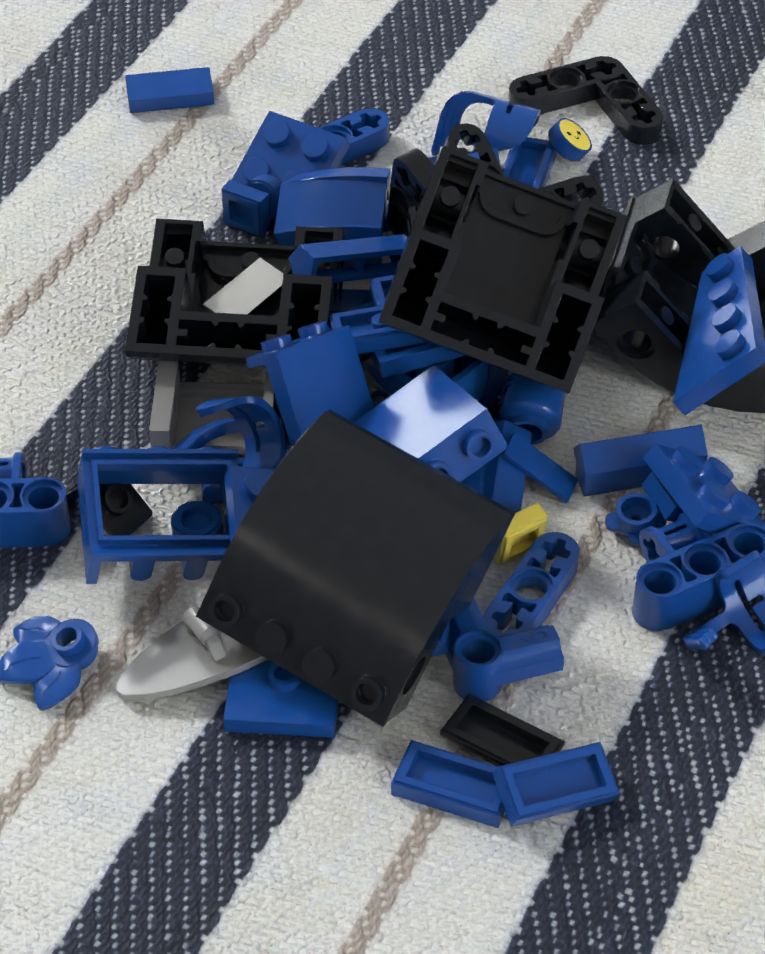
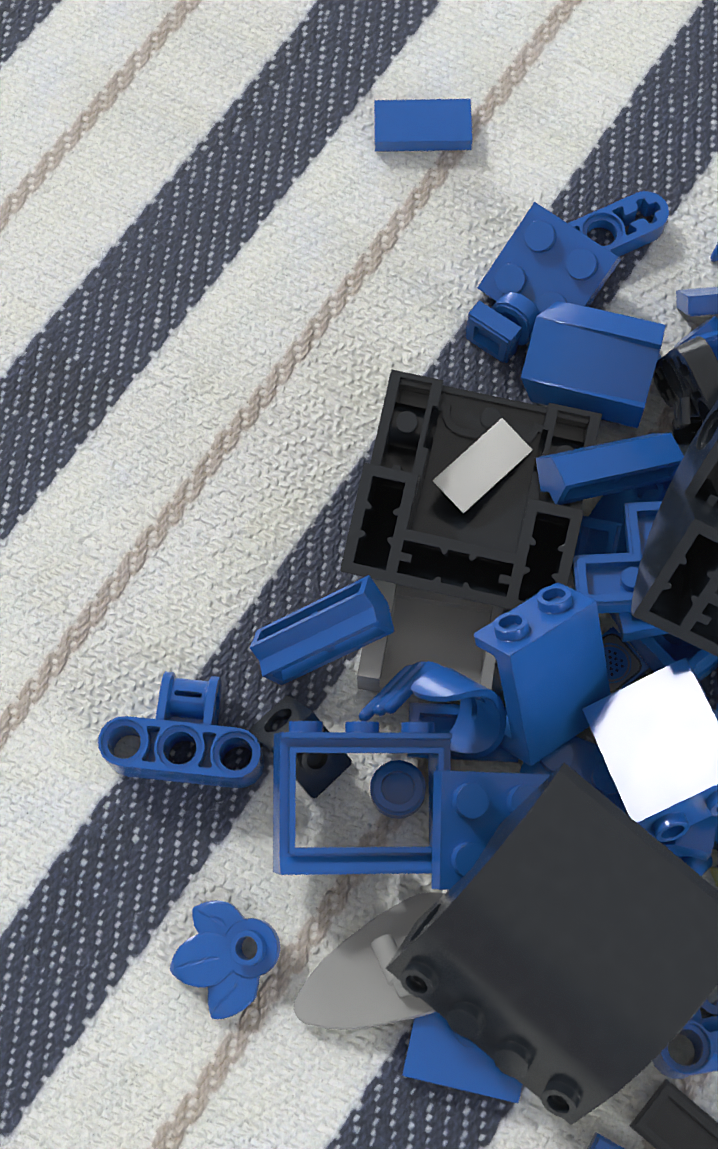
camera: 10 degrees right, 25 degrees up
(116, 406) = (322, 631): none -> blue piece

